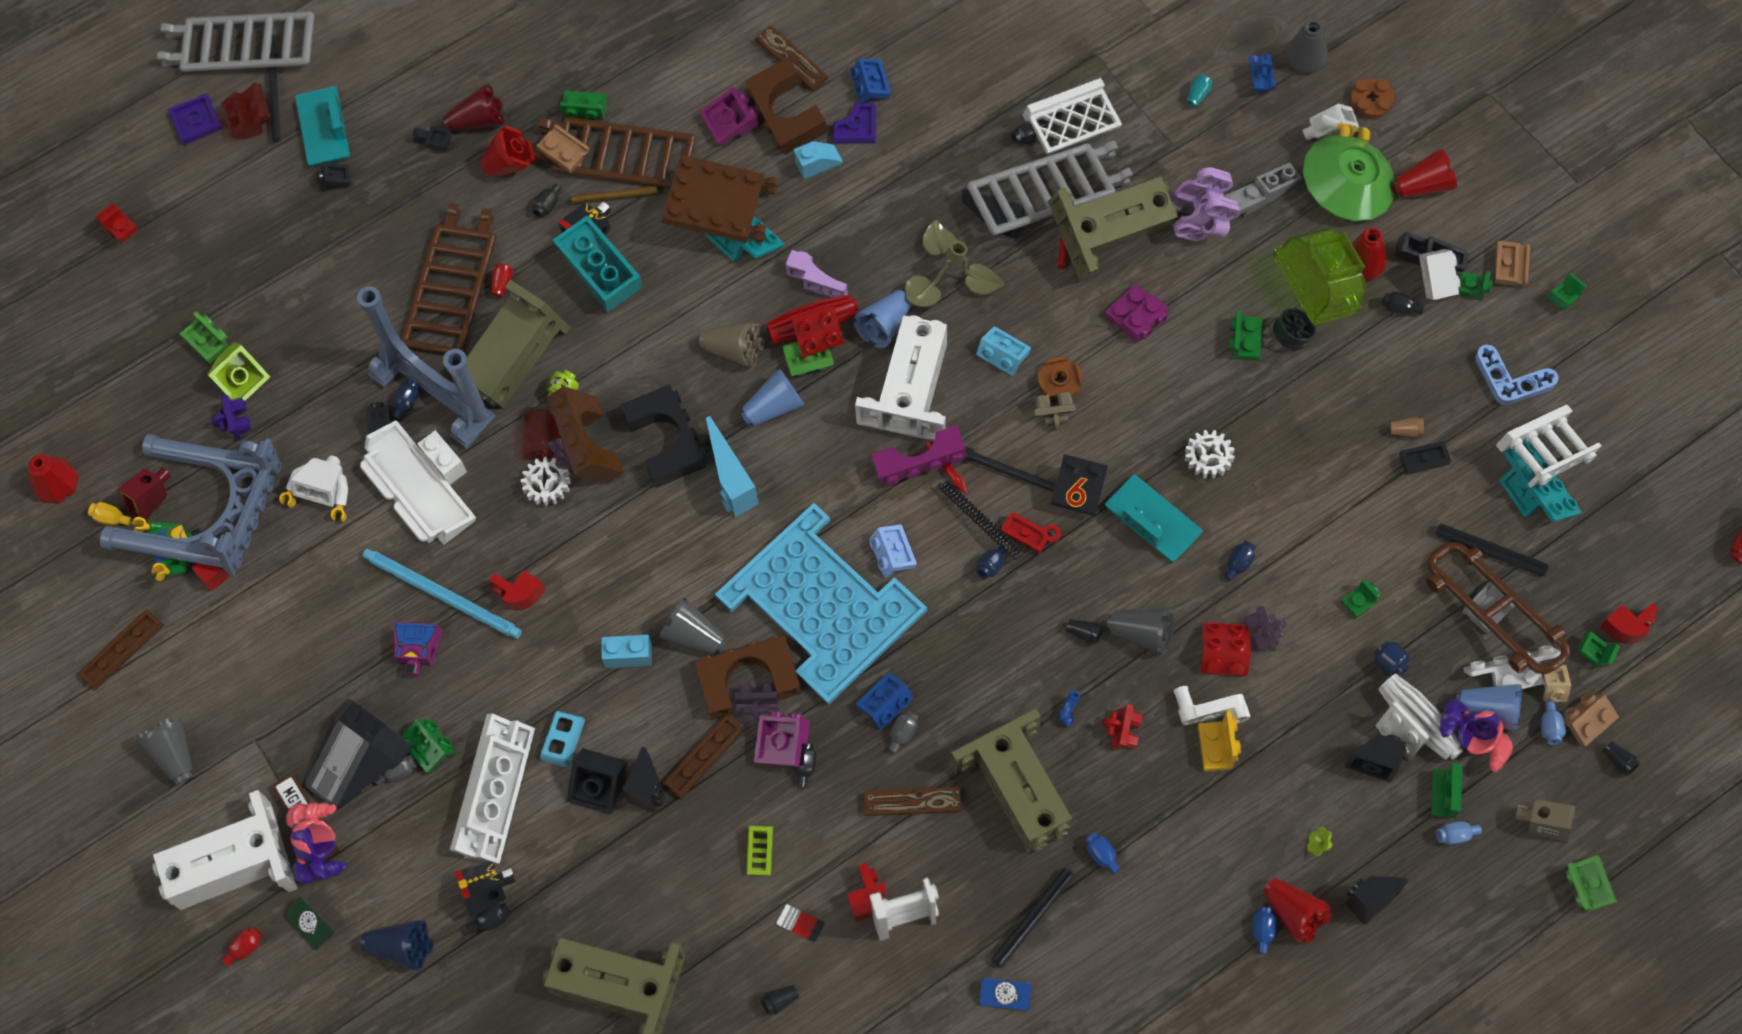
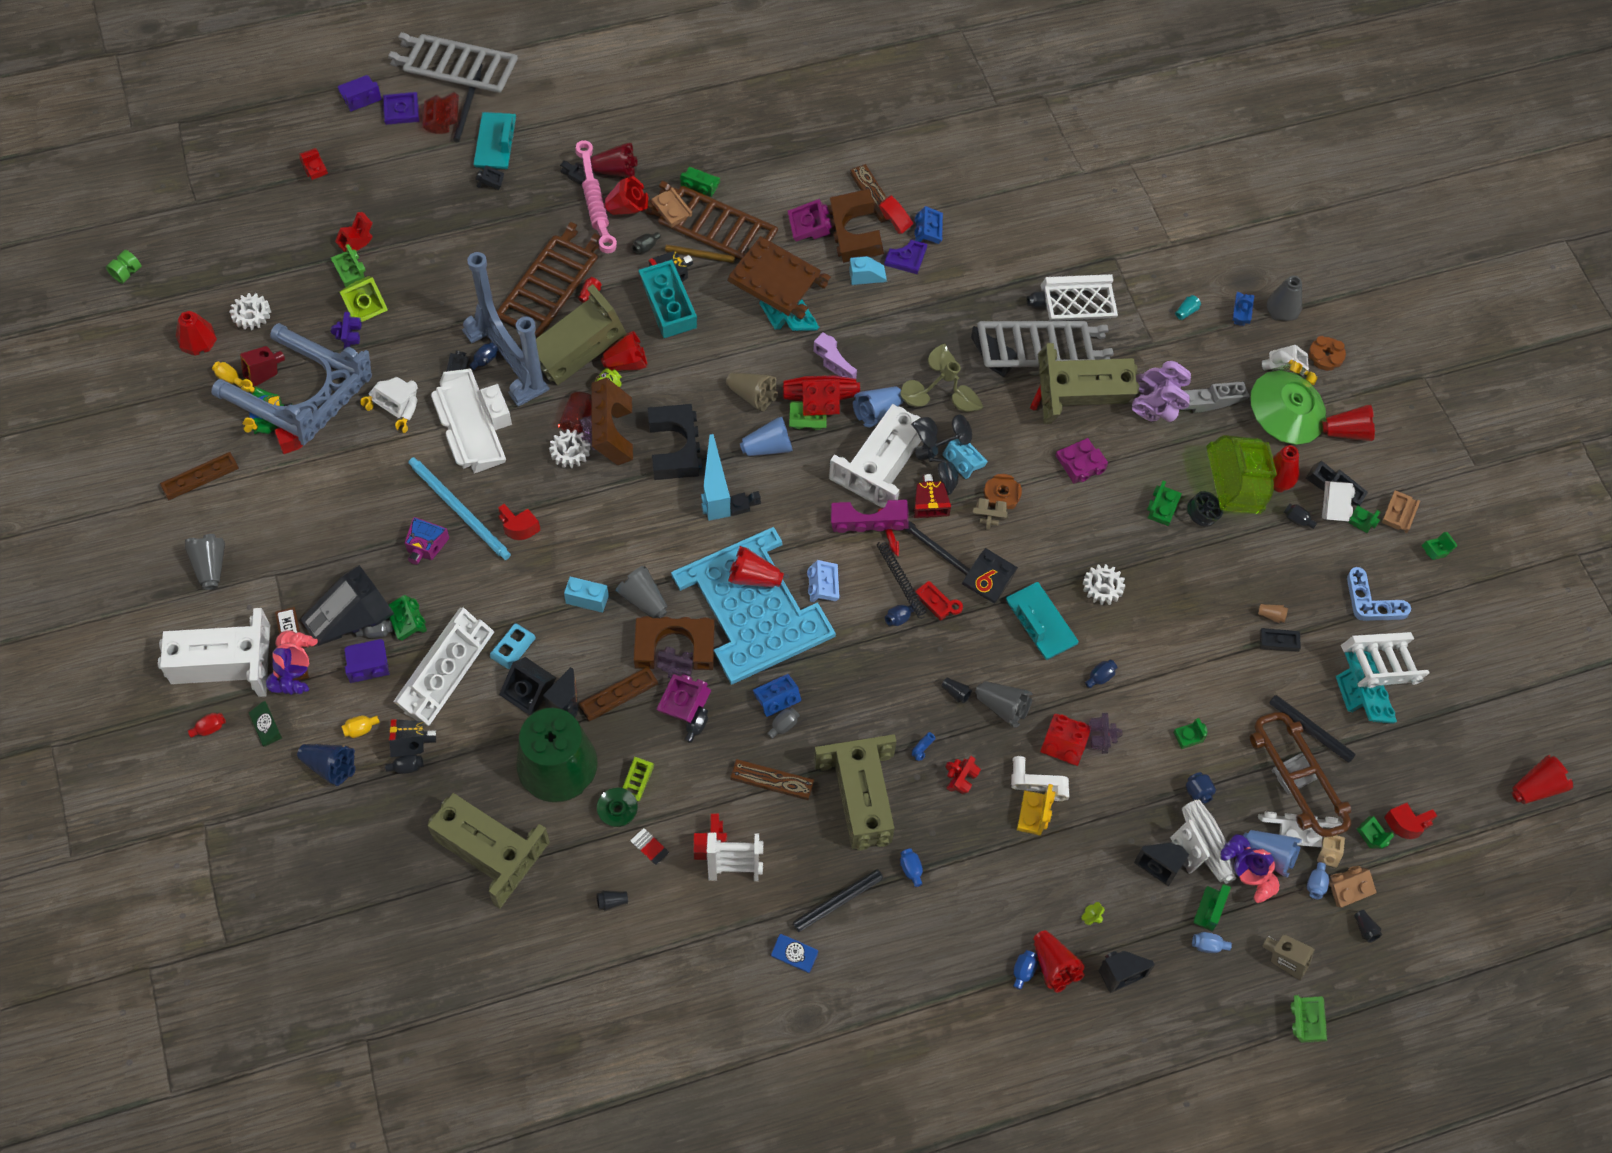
camera: 10 degrees right, 5 degrees down
(107, 429) = (250, 311): none -> white gear
(138, 114) = (360, 92): none -> dark purple bracket
(200, 296) = (357, 235): none -> red brick
(399, 810) = (366, 661): none -> dark purple bracket
(419, 890) = (359, 725): none -> yellow plant
(468, 166) = (594, 199): none -> bright pink piece
(571, 347) = (625, 354): none -> red cone
(662, 873) = (556, 768): none -> dark green cone
(745, 879) = (617, 798): none -> dark green dish
(767, 485) = (741, 504): none -> black plate
(810, 564) = (754, 570): none -> red cone
(828, 77) = (895, 212): none -> red slope
(955, 338) = (927, 432): none -> black plant
(982, 413) = (931, 499): none -> dark red torso

